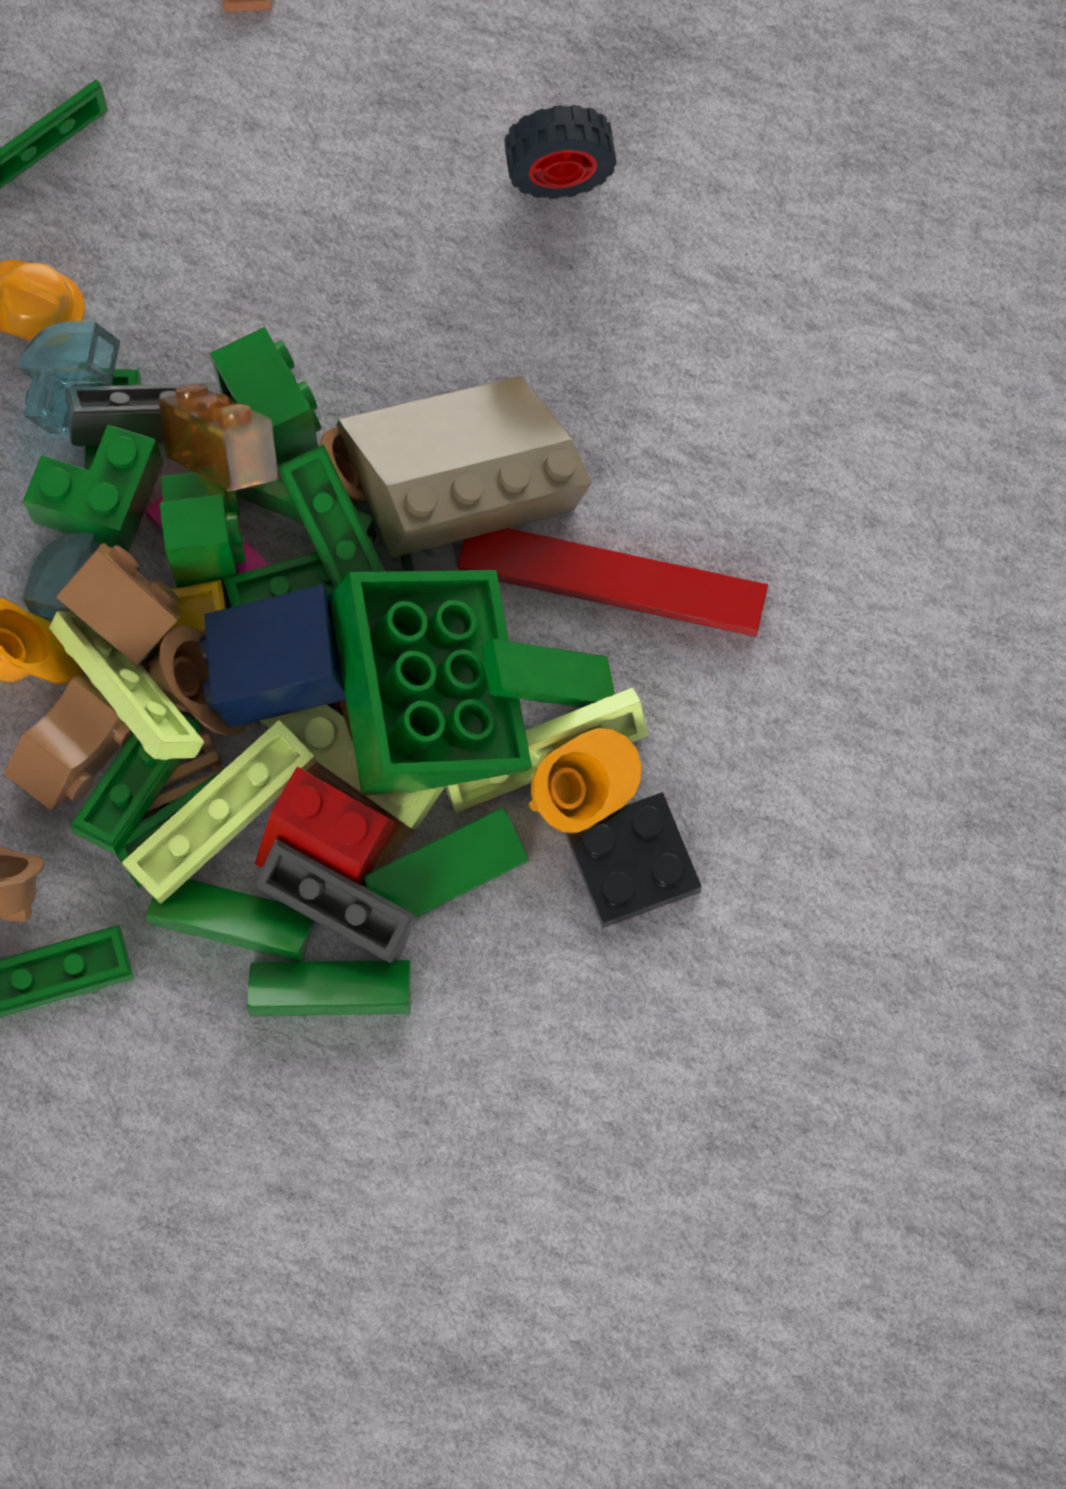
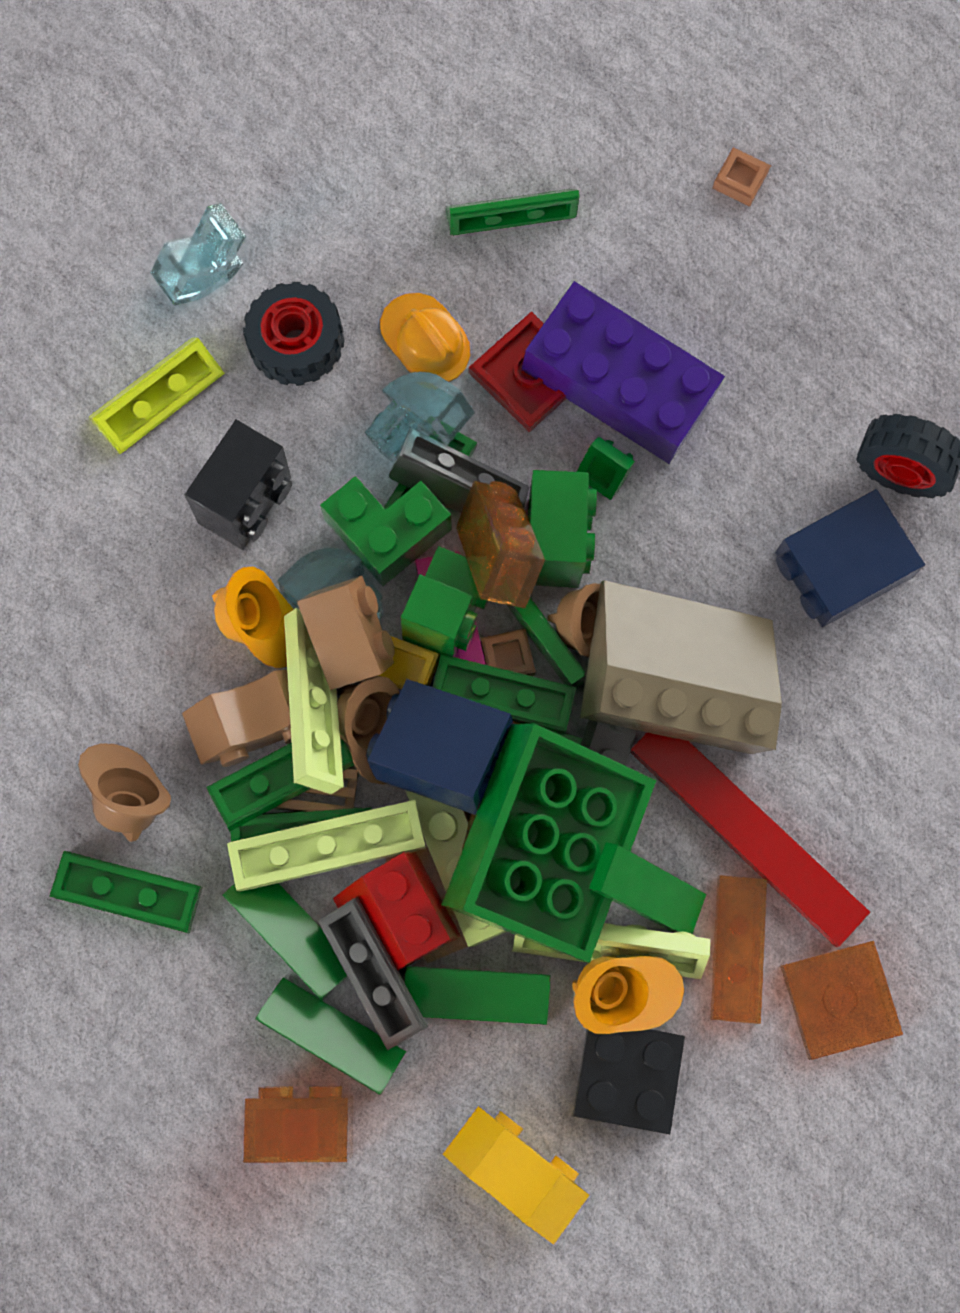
camera: 25 degrees right, 5 degrees up
(150, 277) = (502, 376): none -> red tile
(240, 226) = (621, 372): none -> dark purple brick
(281, 318) = (606, 467): none -> green tile
(285, 542) = (509, 652): none -> nougat tile
(329, 515) = (549, 662): green tile -> none
(349, 1071) = (298, 1127): none -> clear orange brick
(558, 279) = (848, 558): none -> dark blue brick
(595, 1002) = (517, 1175): none -> yellow brick
(667, 689) = (738, 949): none -> clear orange tile
(788, 679) = (841, 1000): none -> clear orange tile

